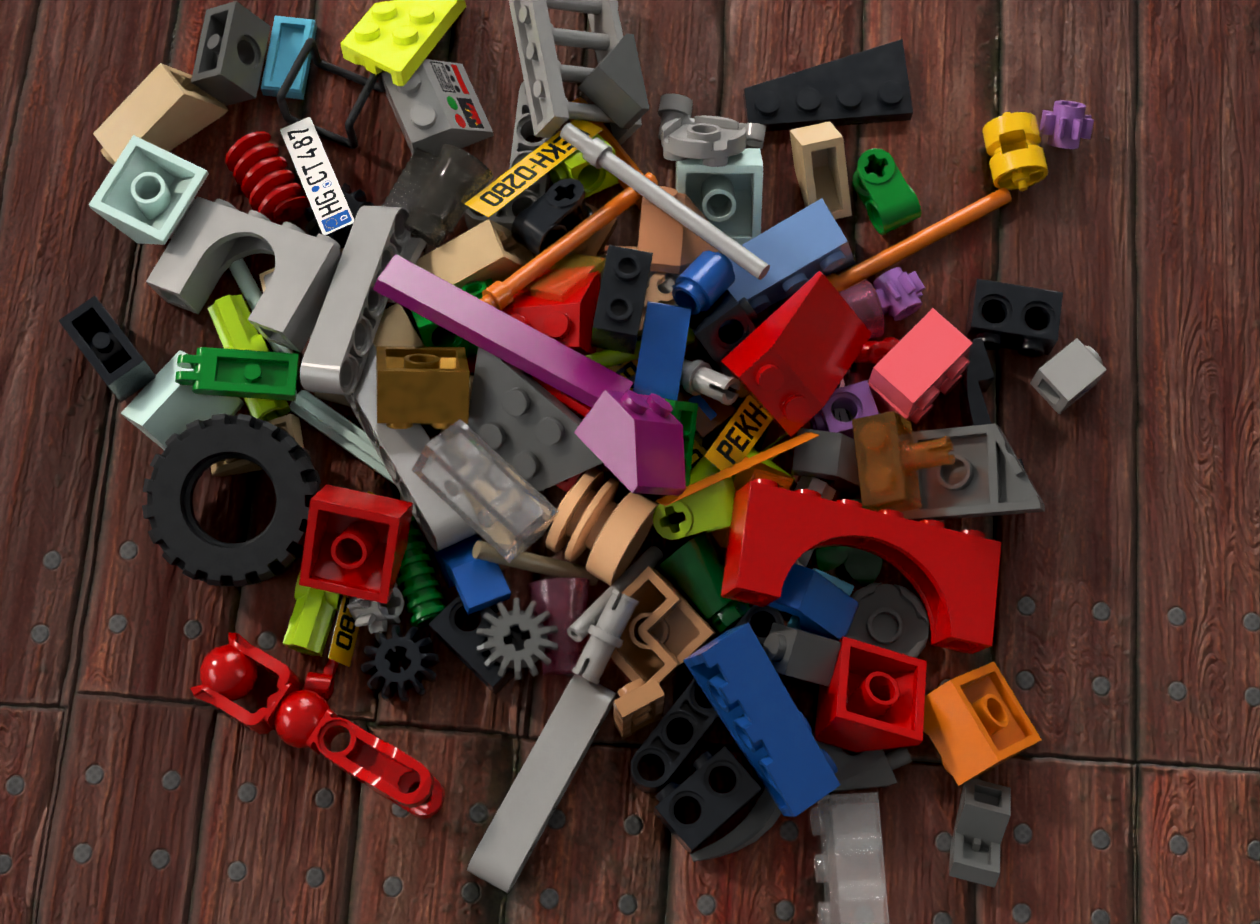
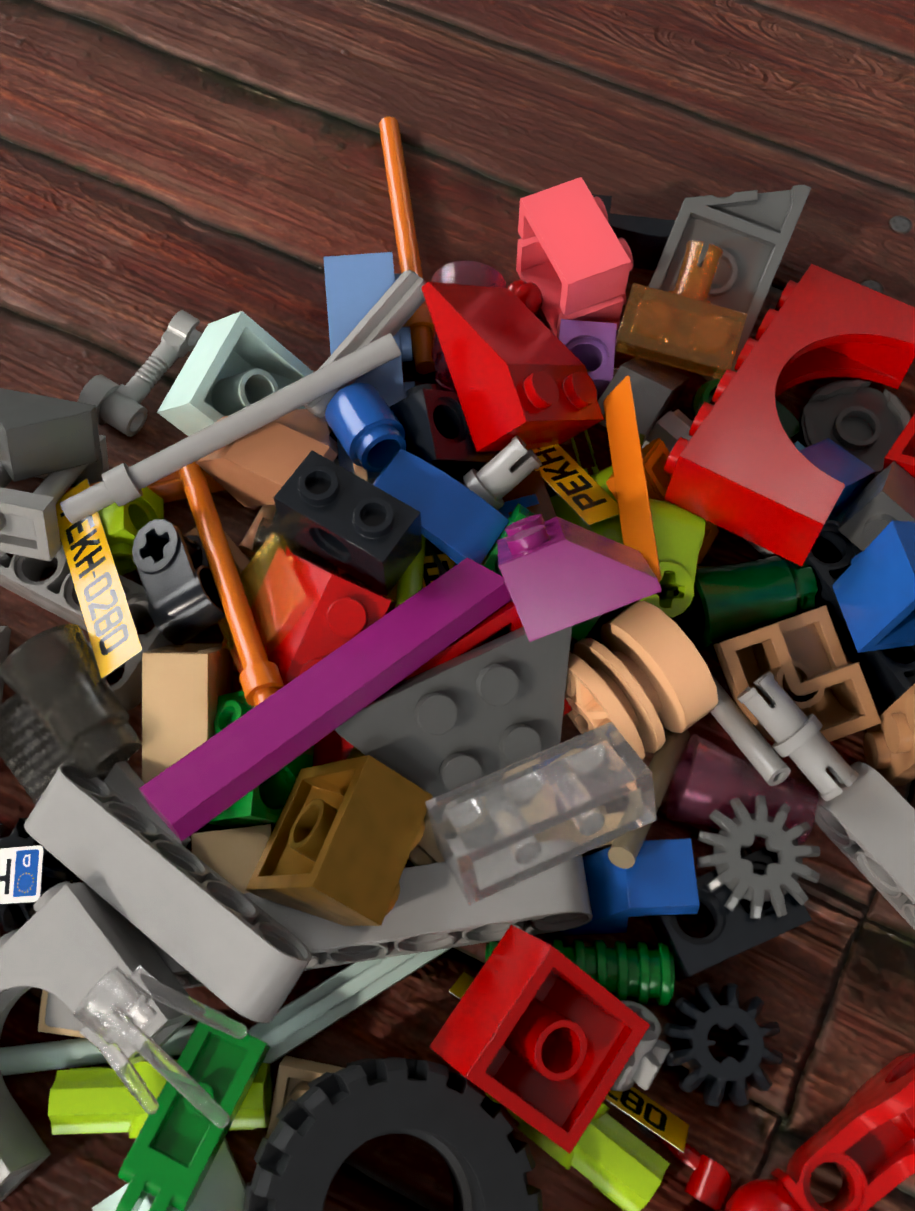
camera: 65 degrees left, 5 degrees down
(273, 304) = (120, 1013): none -> clear plant
(707, 139) = (168, 367): light grey plate -> none
(782, 256) = (384, 318): none -> light grey axle
(822, 167) = (266, 275): tan slope -> none
(844, 91) = (178, 234): black wing -> none
(887, 198) = (331, 226): green piece -> none
(899, 292) = (460, 246): medium lavender gear -> none
(1013, 306) = (541, 154): black brick -> none
(1014, 150) = (347, 88): yellow wheel -> none
(1066, 124) = (342, 34): medium lavender gear -> none
(1068, 375) = (631, 141): light grey brick -> none

